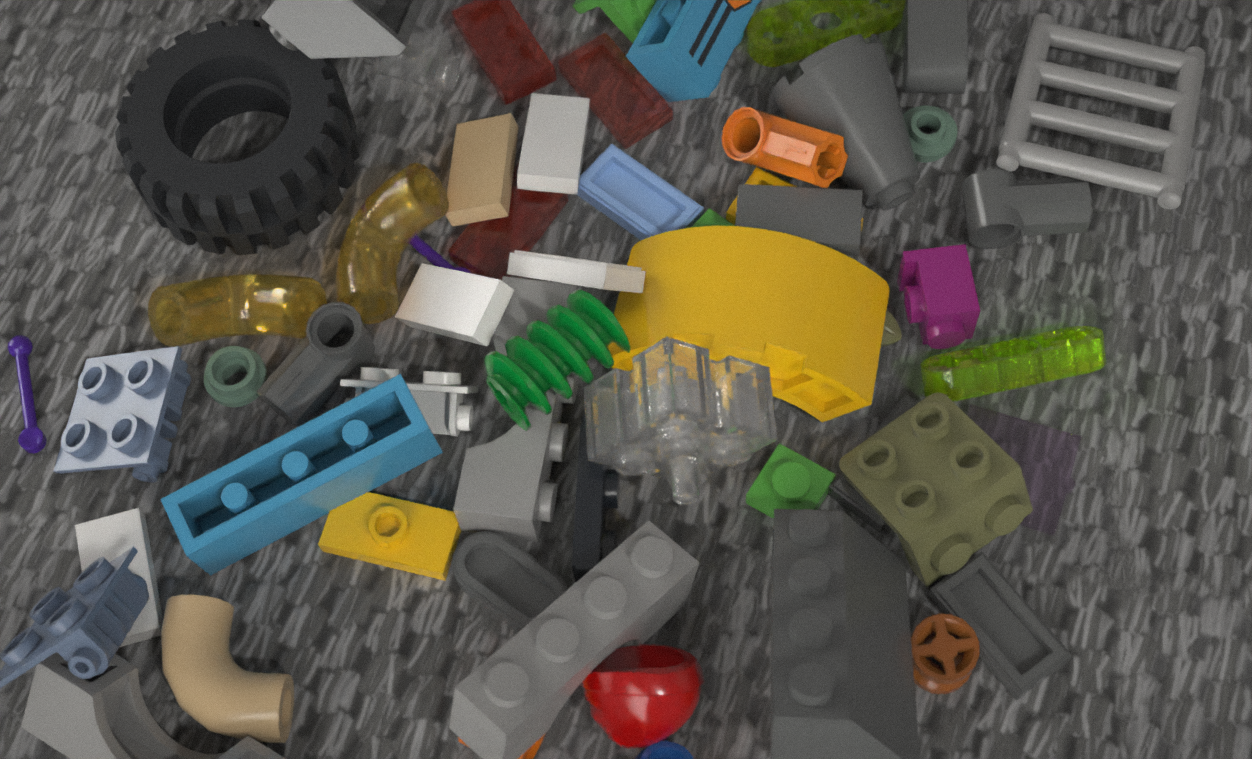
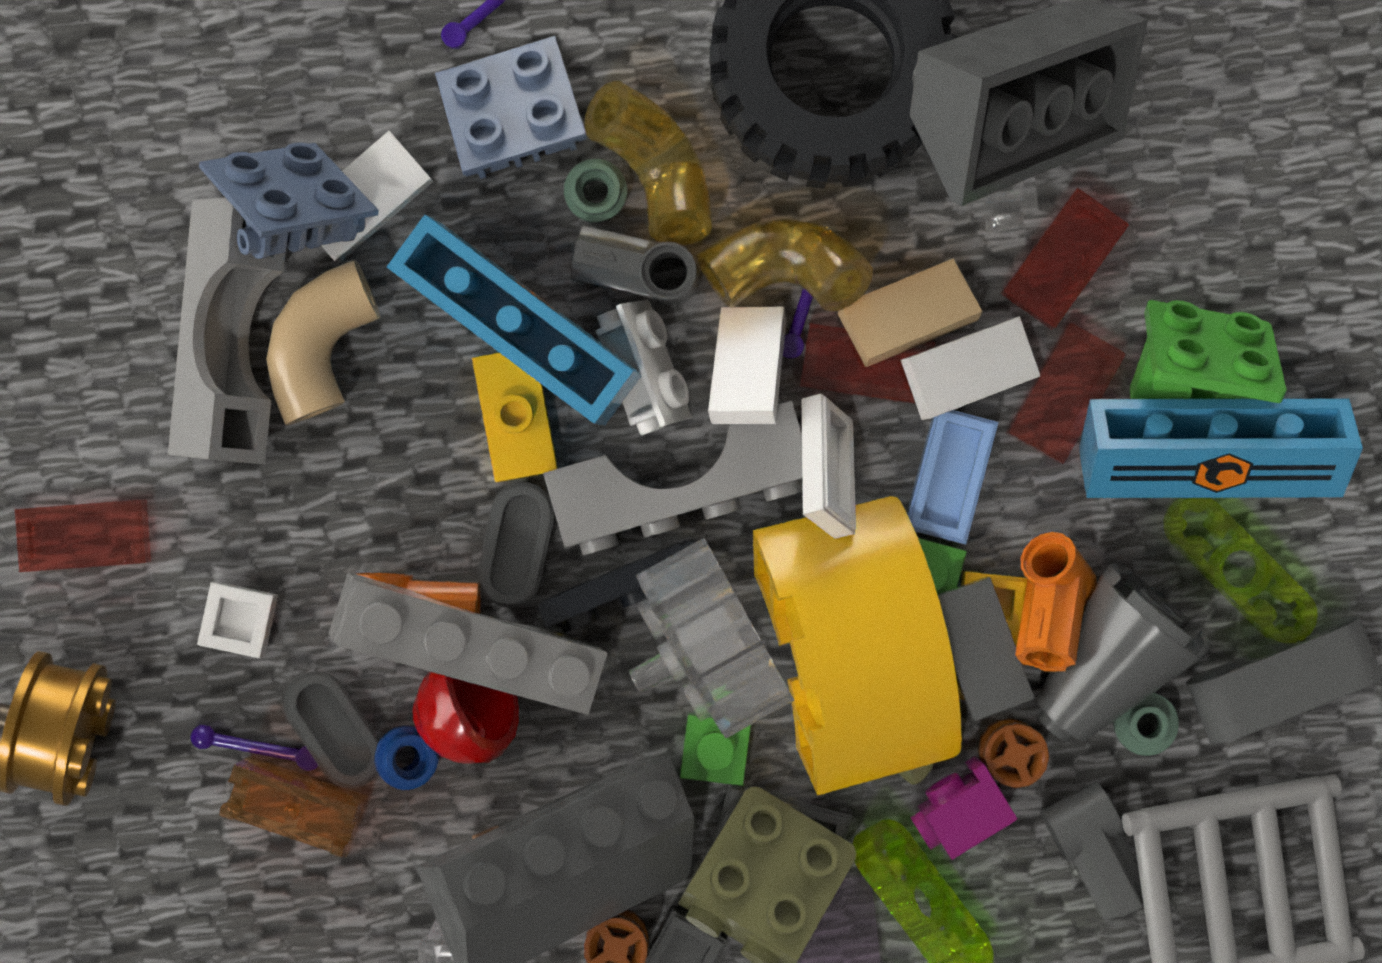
camera: 65 degrees right, 25 degrees up
(553, 354) = (713, 501): green piece -> none
(906, 223) = (1018, 764): none -> dark orange wheel

